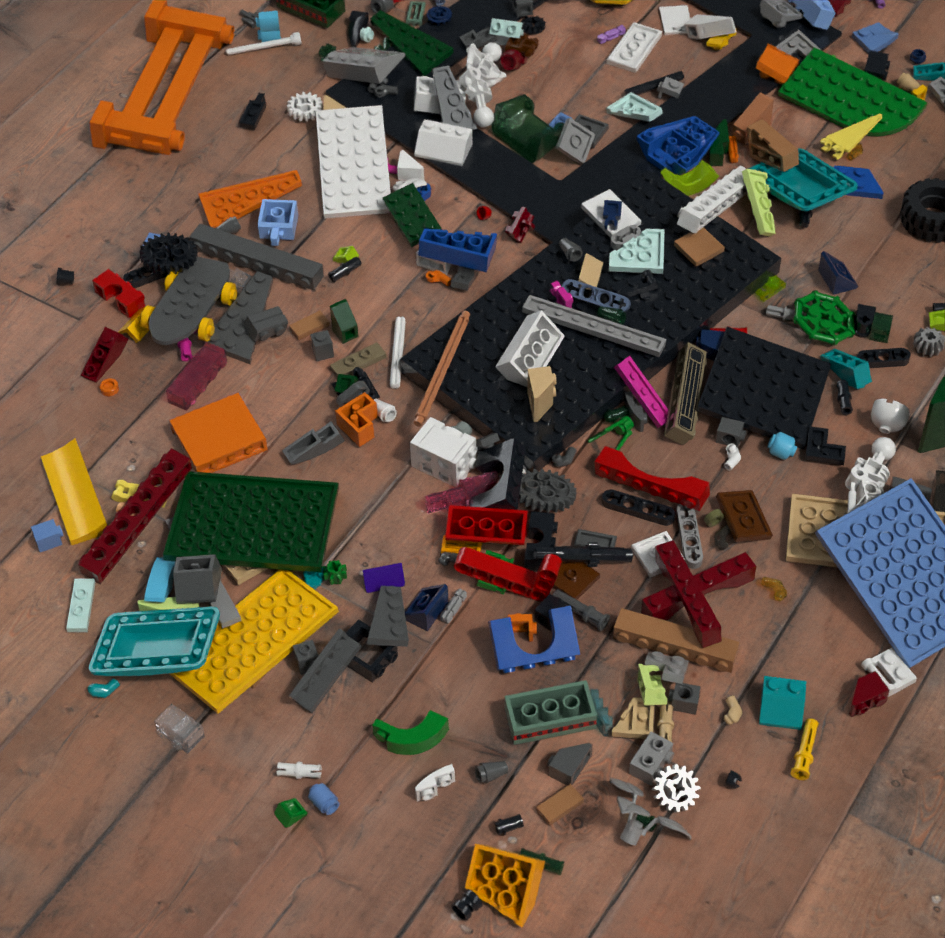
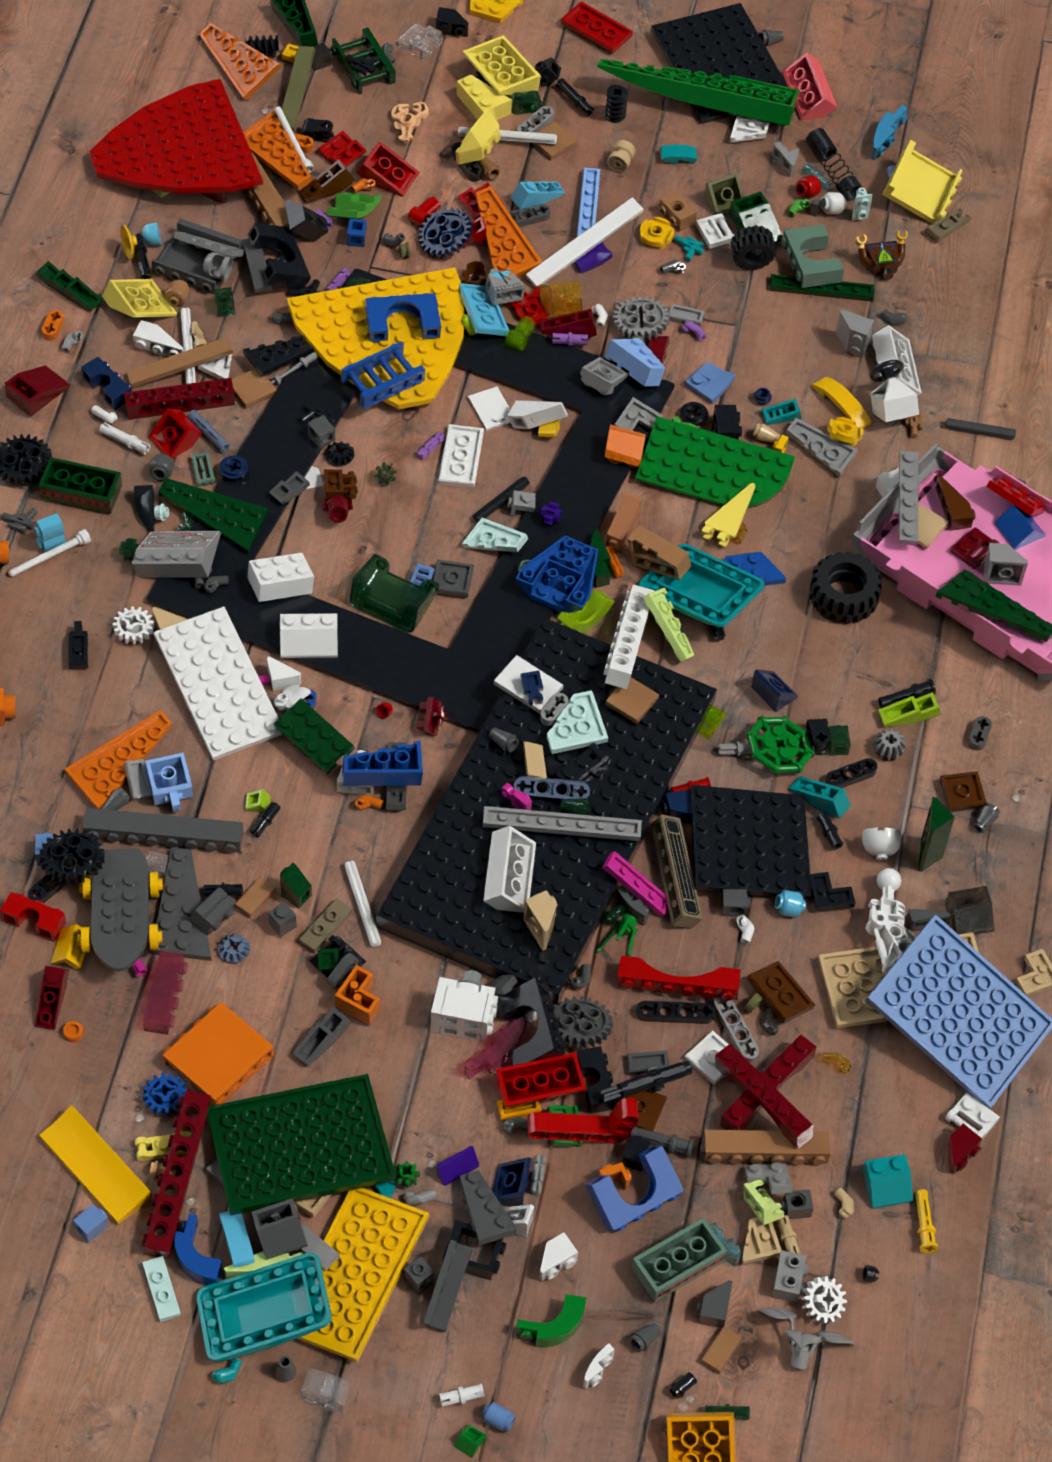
camera: 25 degrees left, 5 degrees up
(116, 573) = (195, 1266): none -> blue arch
(153, 700) = (285, 1369): none -> dark grey cone
(154, 449) = (162, 1103): none -> blue gear
(252, 215) = (137, 779): none -> light grey tile
(279, 361) = (231, 955): none -> sand blue gear
(289, 313) = (230, 889): none -> black axle
(338, 595) = (412, 1200): none -> light grey arm
(385, 411) = (382, 977): white cone -> none
(420, 637) = (521, 1217): none -> white slope
(438, 678) = (558, 1255): none -> white slope
(441, 369) = (427, 911): nougat piece -> none
(450, 100) = (301, 585): dark grey wing -> none
(480, 77) = (317, 545): white piece -> none
(506, 28) = (318, 471): light aqua hinge -> none
(568, 44) = (388, 469): none -> clear green gear
(575, 141) = (450, 598): light grey plate -> none
(691, 99) = (551, 513): none -> dark purple gear
(847, 53) = (690, 408): none -> black gear

